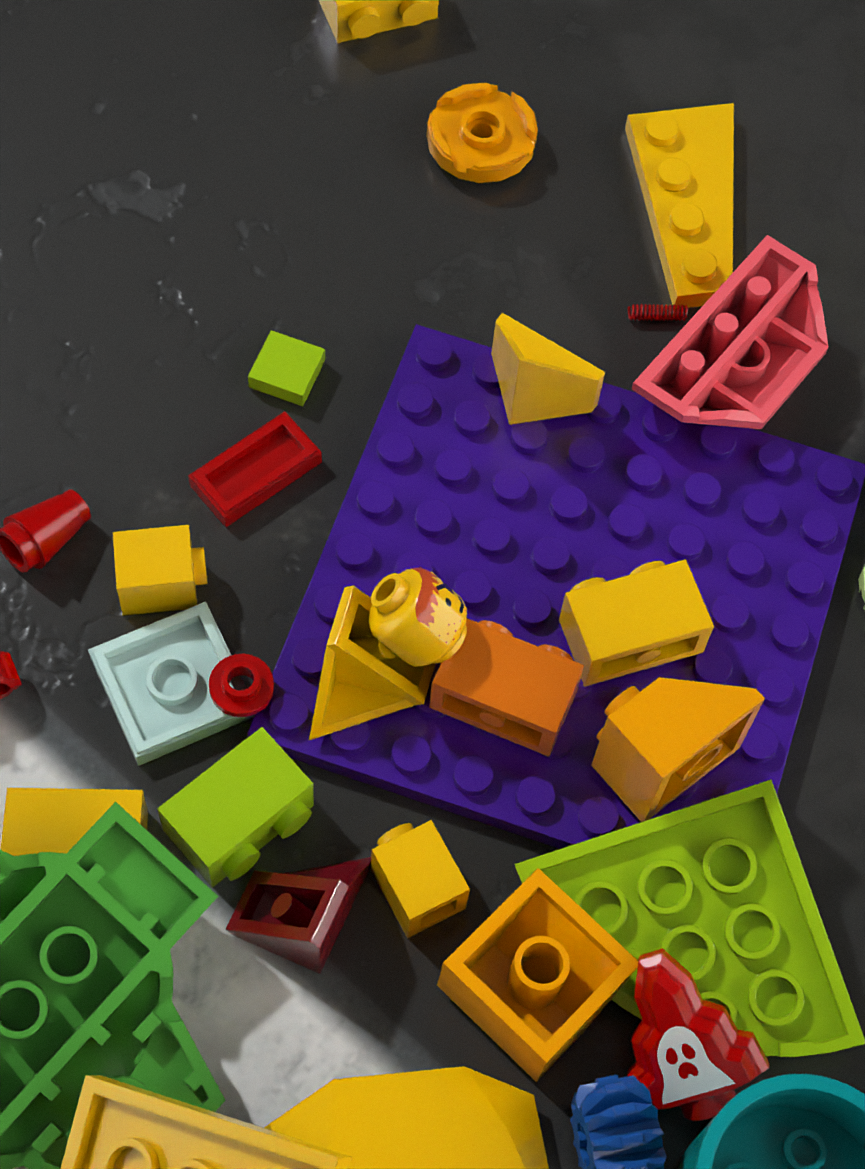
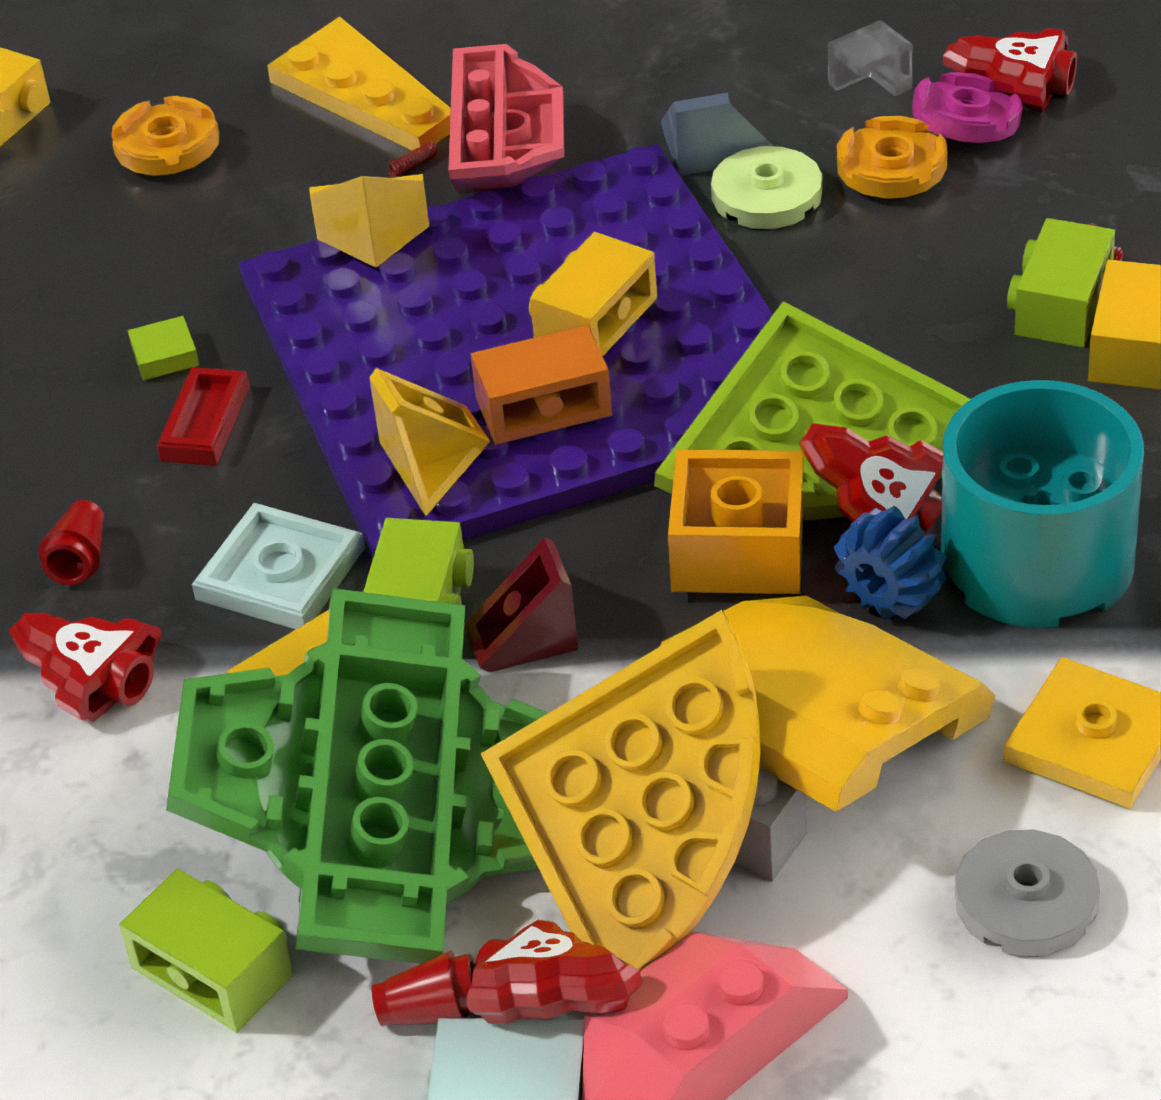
camera: 30 degrees left, 20 degrees down
(157, 569) = (195, 504): yellow brick -> none
(241, 702) = (341, 518): red plate -> none
(418, 617) = (441, 360): yellow head -> none
(418, 876) = (595, 536): yellow brick -> none
(670, 738) = (689, 323): light orange slope -> none

